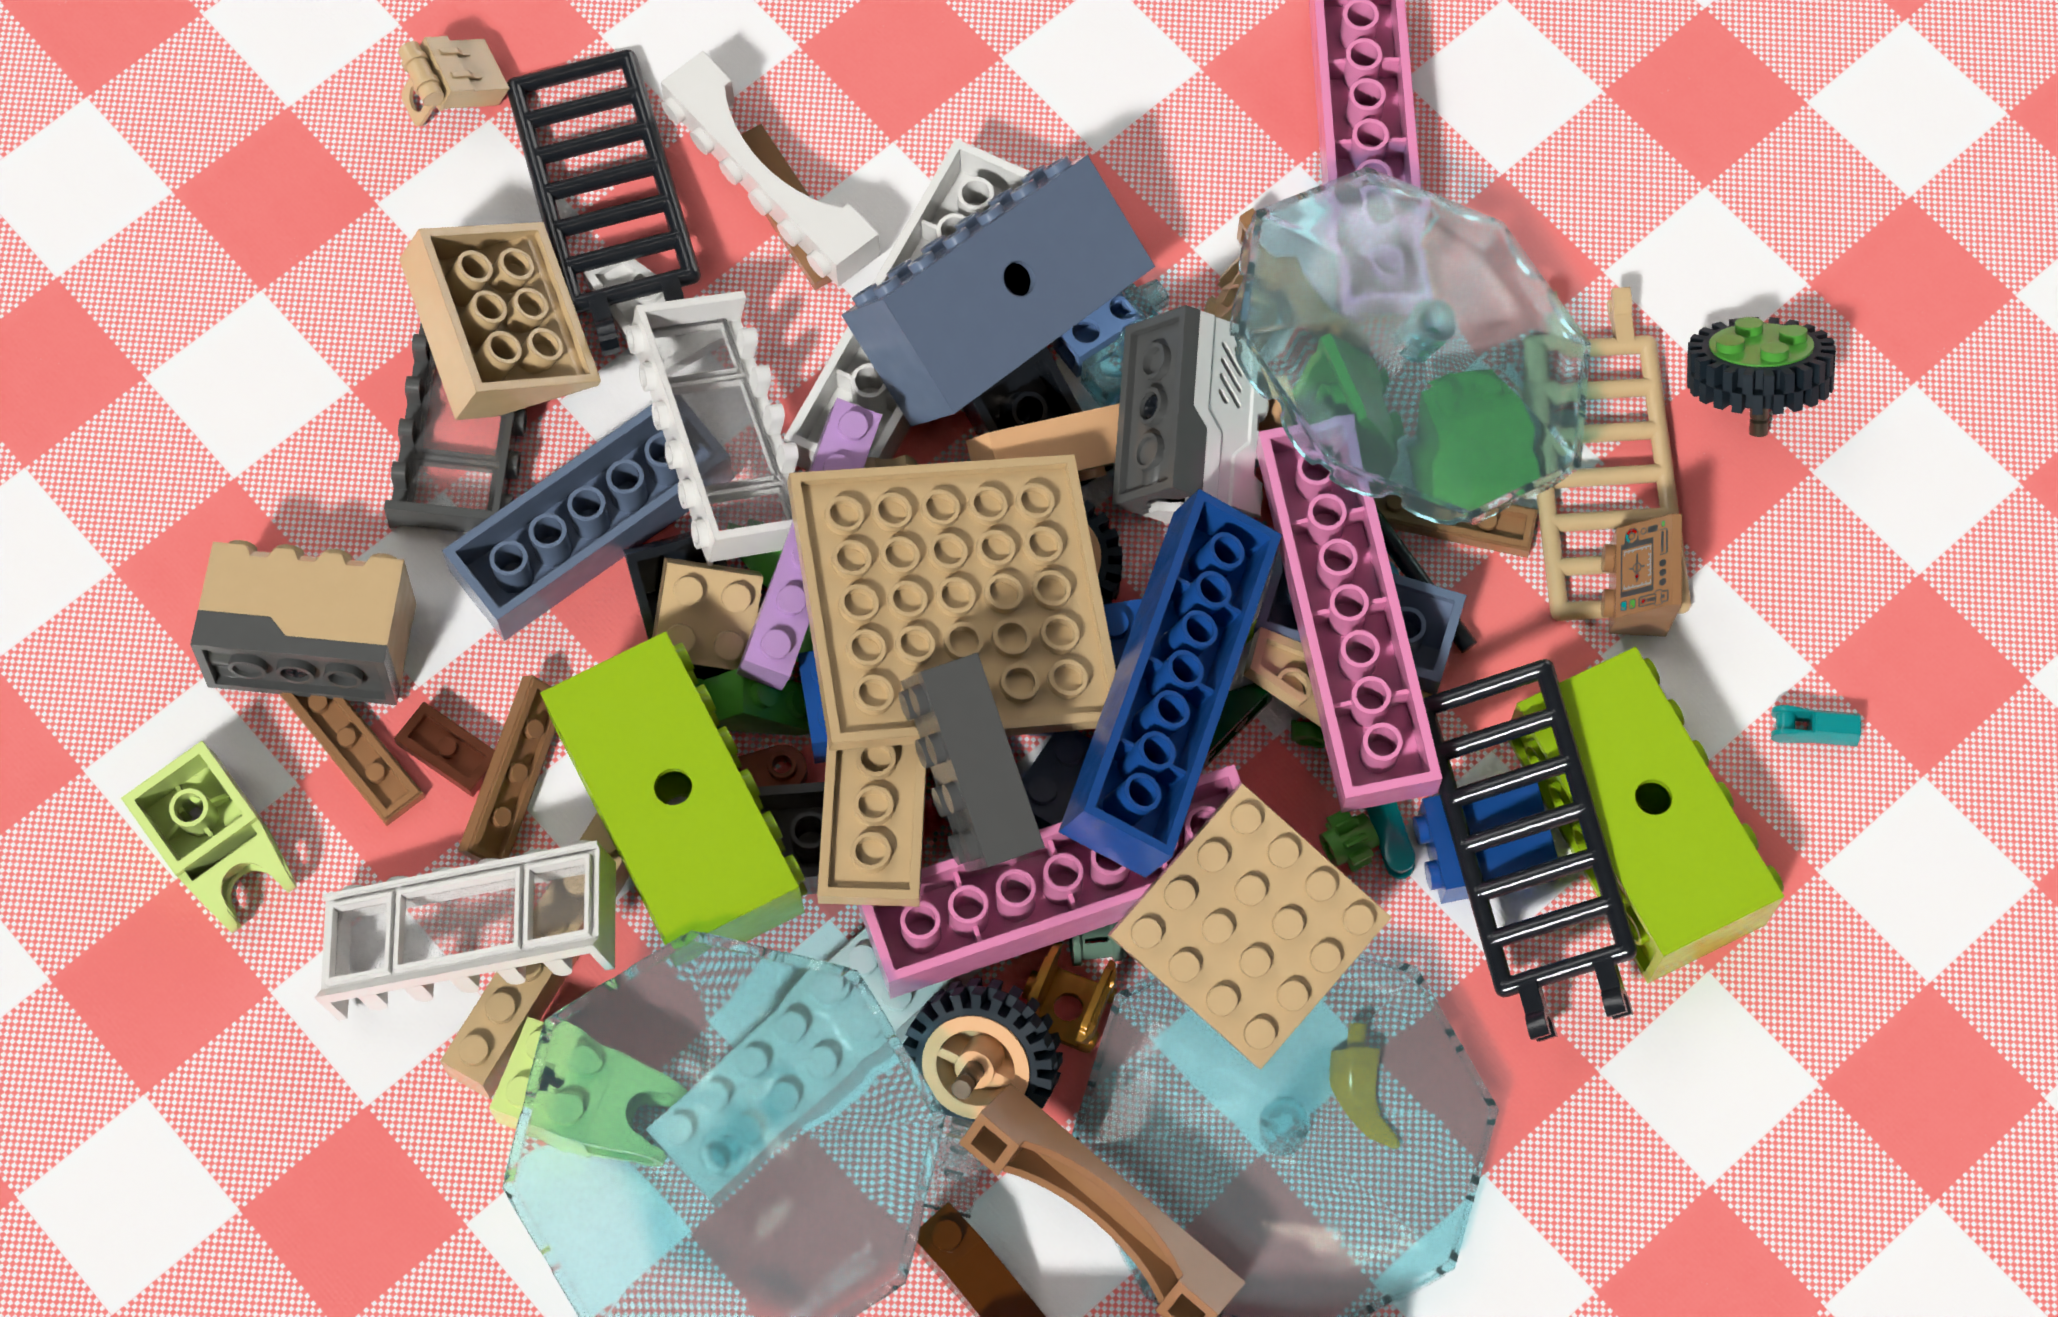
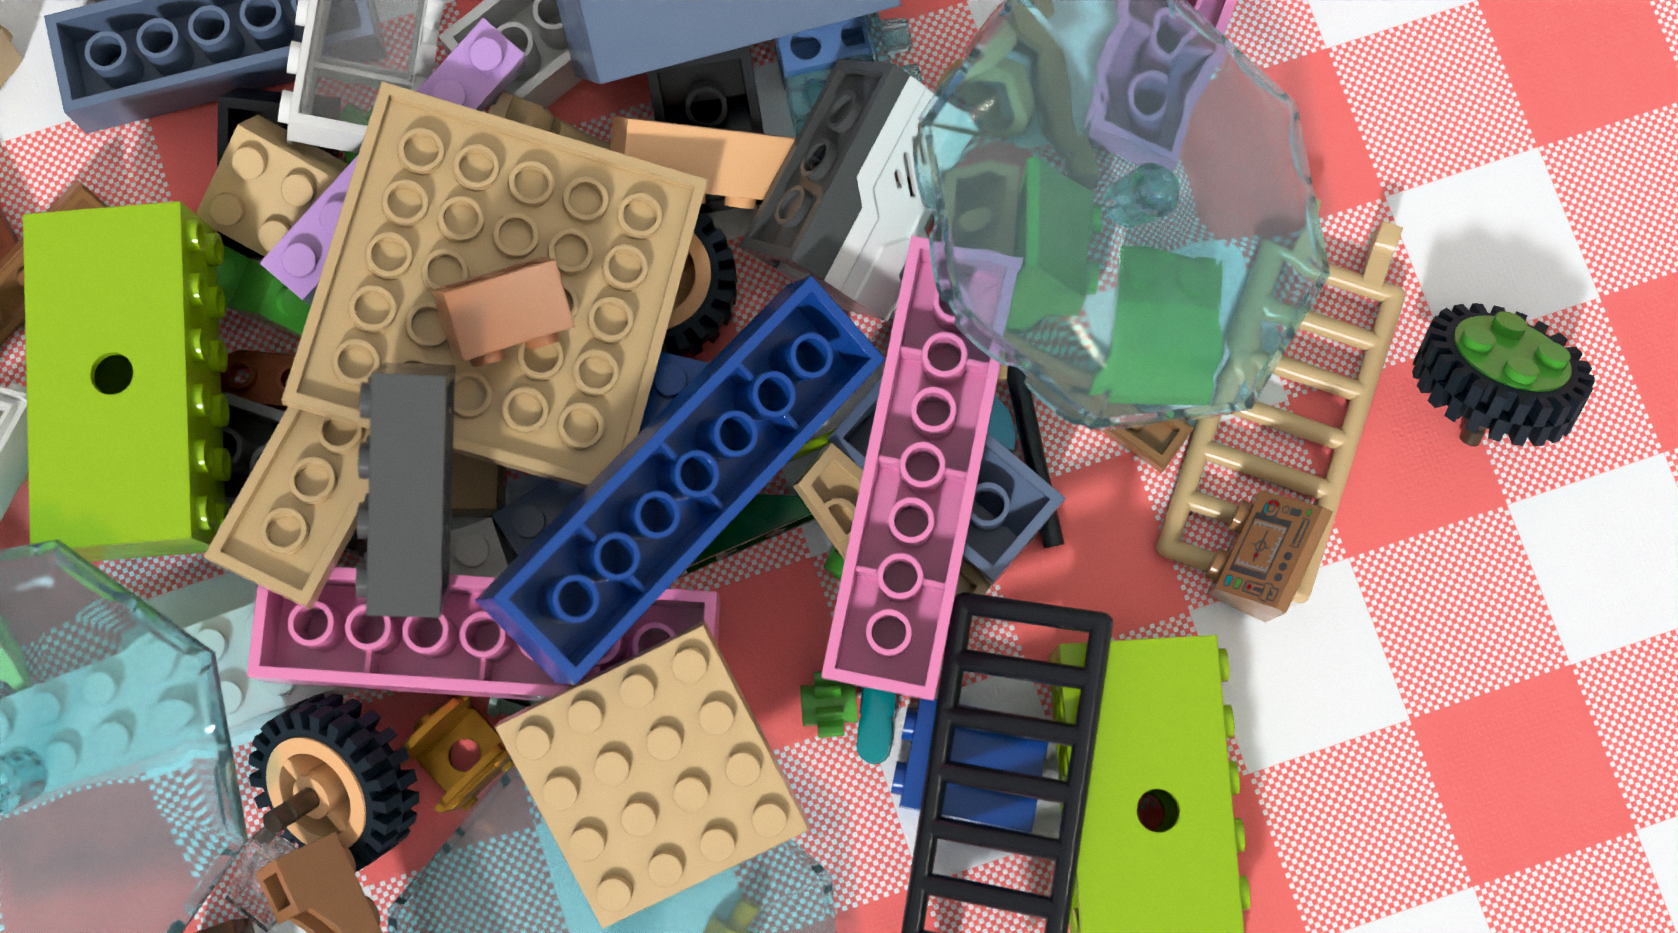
camera: 25 degrees right, 10 degrees up
(976, 604) = (504, 310): none -> nougat brick
(1822, 726) = (1386, 789): teal bar -> none

